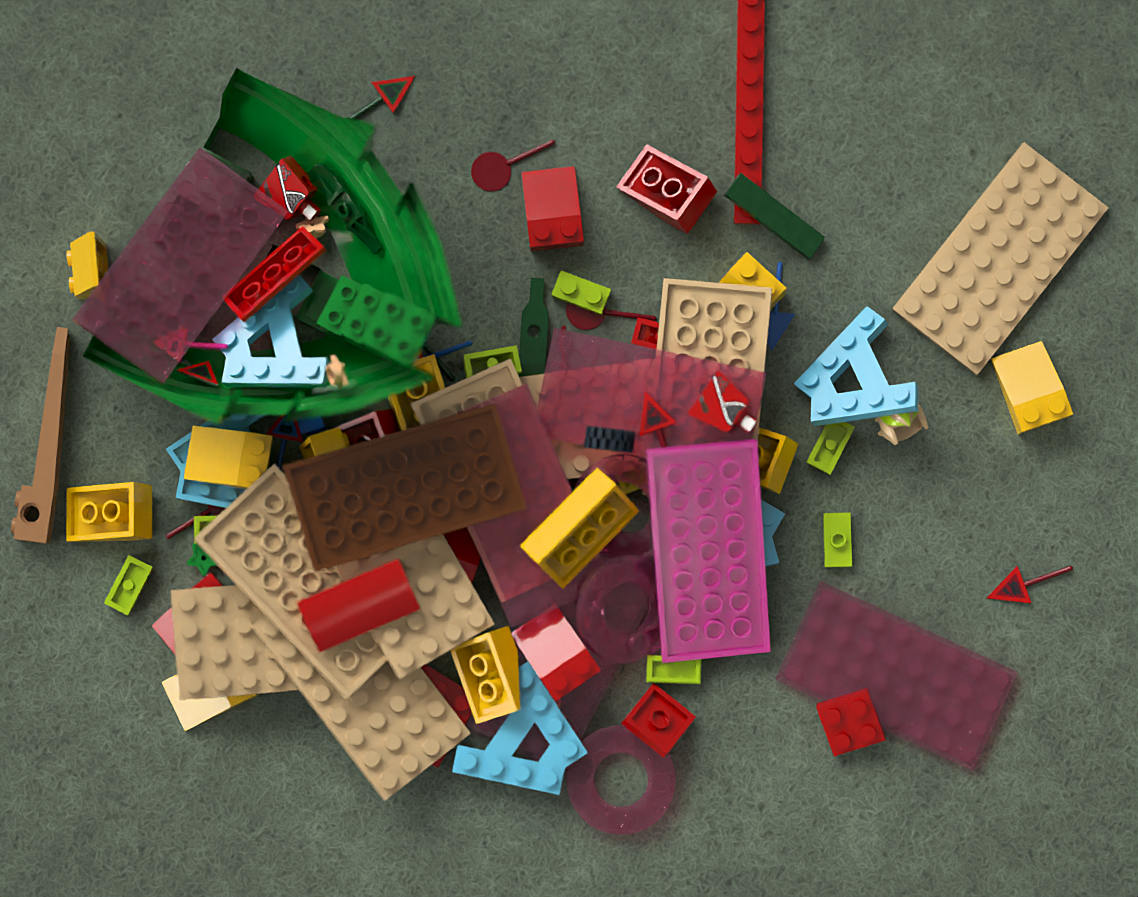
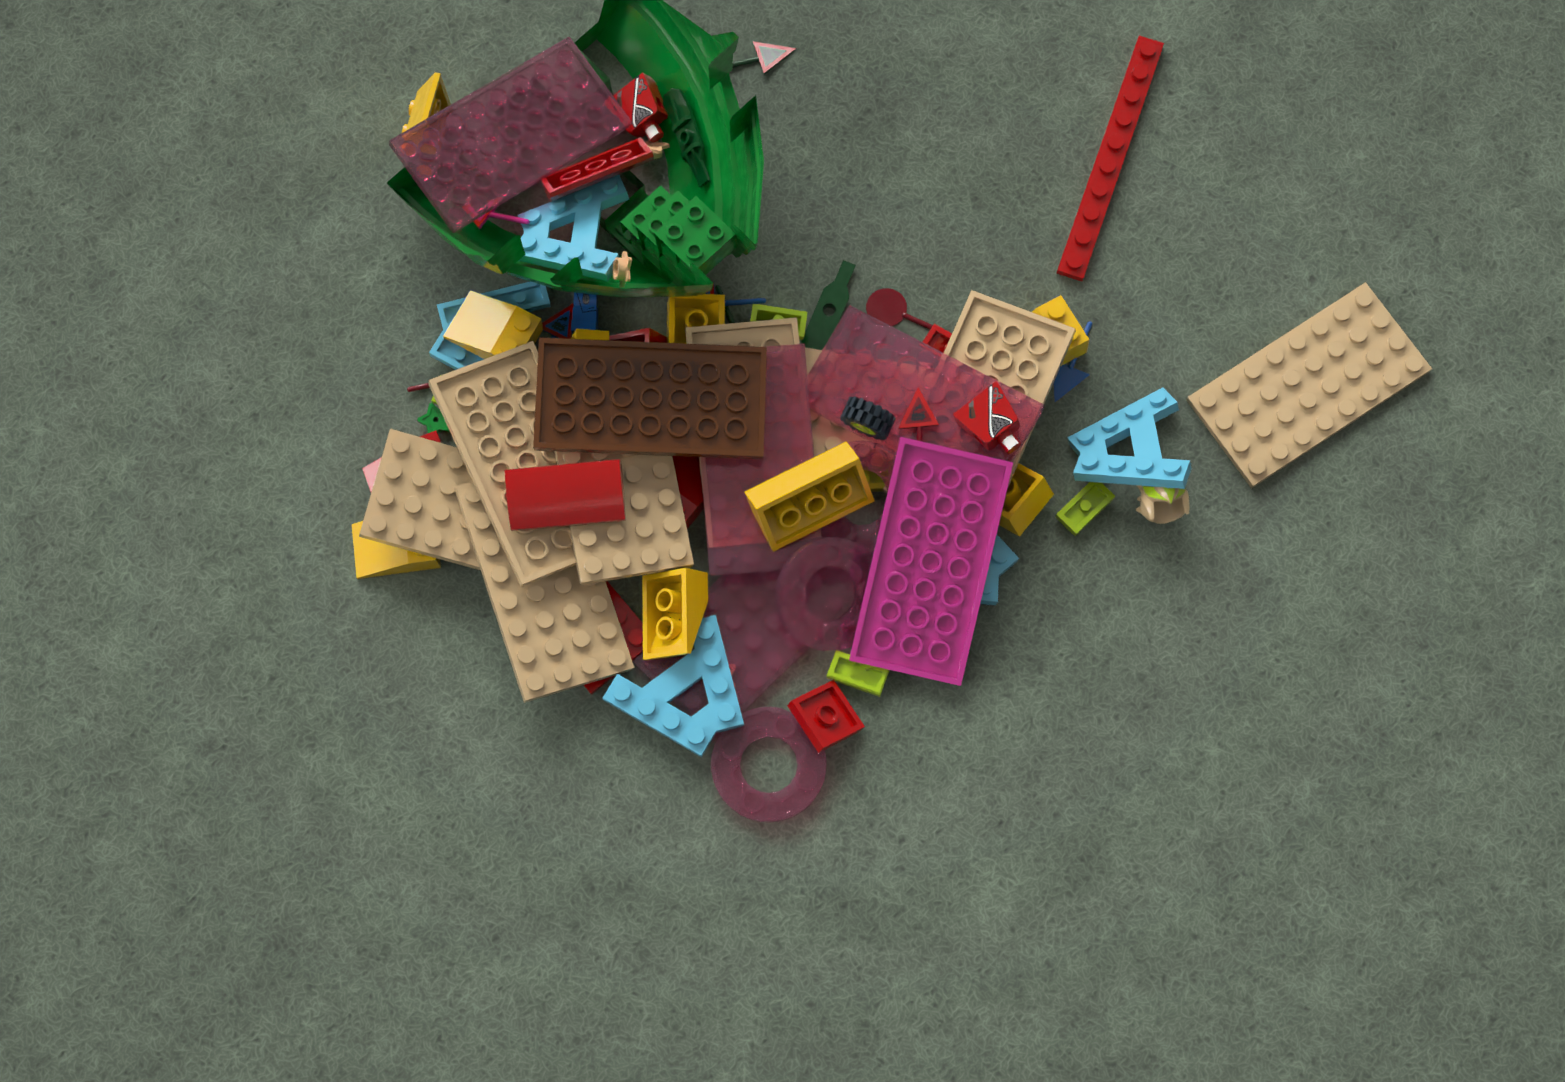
camera: 20 degrees right, 10 degrees down
(47, 468) = (317, 291): medium nougat piece -> none
(109, 512) = (362, 348): yellow slope -> none
(128, 585) = (354, 422): lime plate -> none
(201, 372) = (494, 240): piece -> none
(492, 170) = (841, 154): dark red piece -> none
(552, 209) = (884, 205): red slope -> none
(555, 653) = (746, 617): slope -> none
(581, 293) = (887, 289): lime plate -> none
(667, 188) = (1003, 219): red slope -> none
(774, 216) = (1098, 274): dark green tile -> none
(837, 539) = (1063, 601): lime plate -> none
(850, 722) = (1020, 781): red plate -> none
(917, 680) = (1081, 753): clear pink plate -> none
(1014, 588) = (1228, 707): piece -> none
(1031, 387) = (1304, 516): yellow slope -> none

